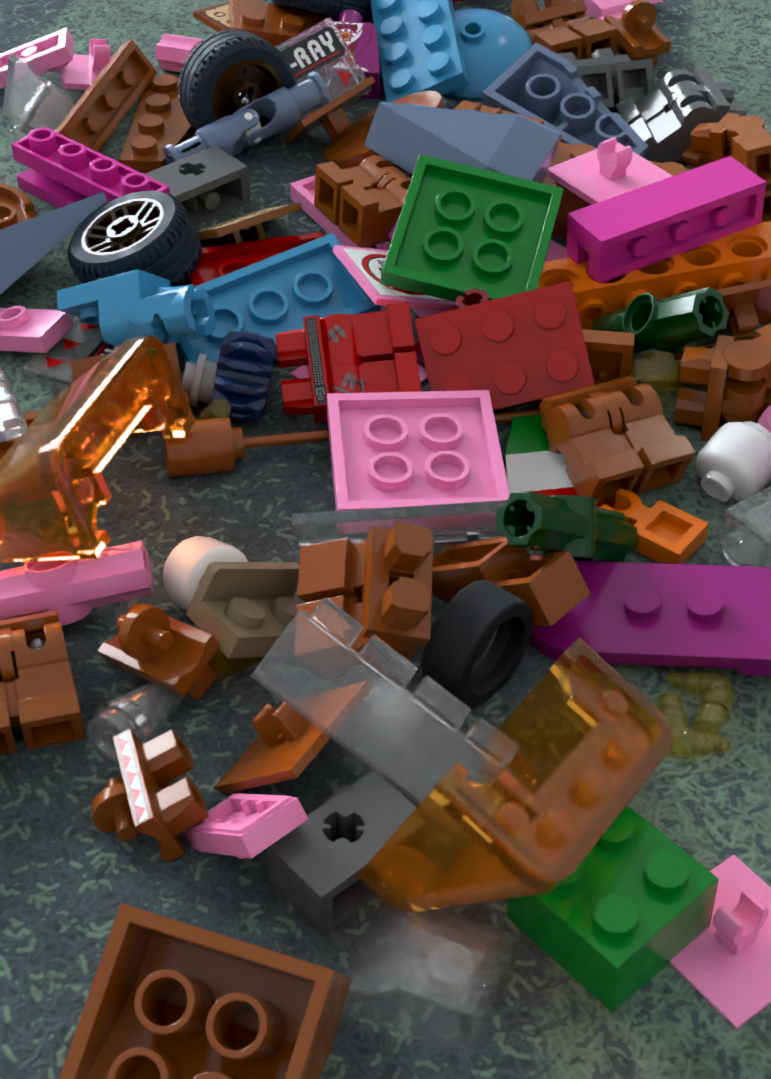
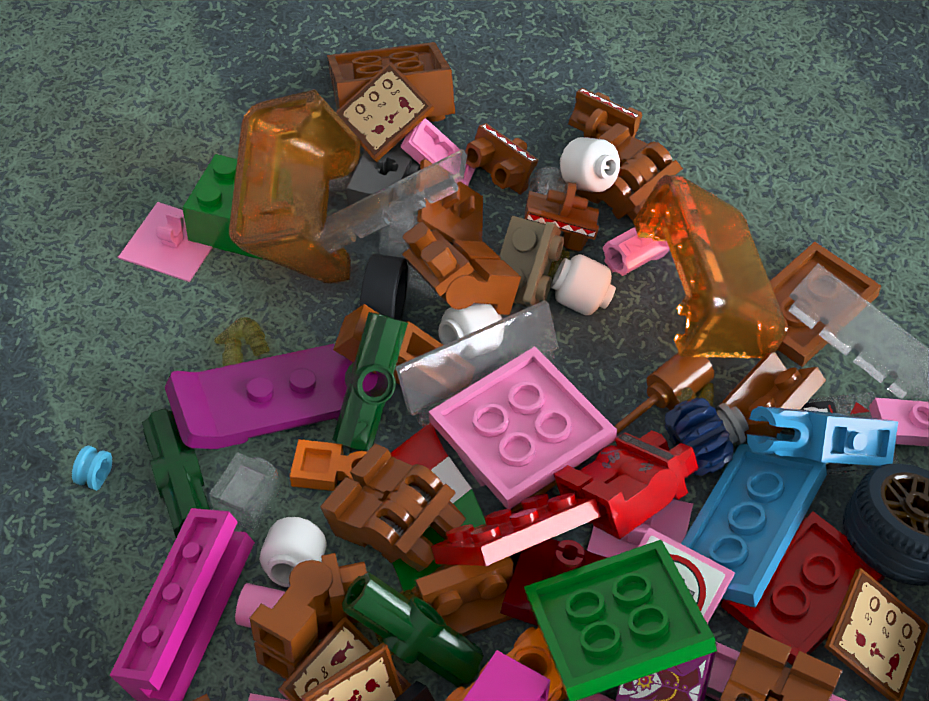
camera: 150 degrees right, 10 degrees up
(78, 636) = (590, 164): none -> white head
(290, 885) = (384, 111): none -> piece

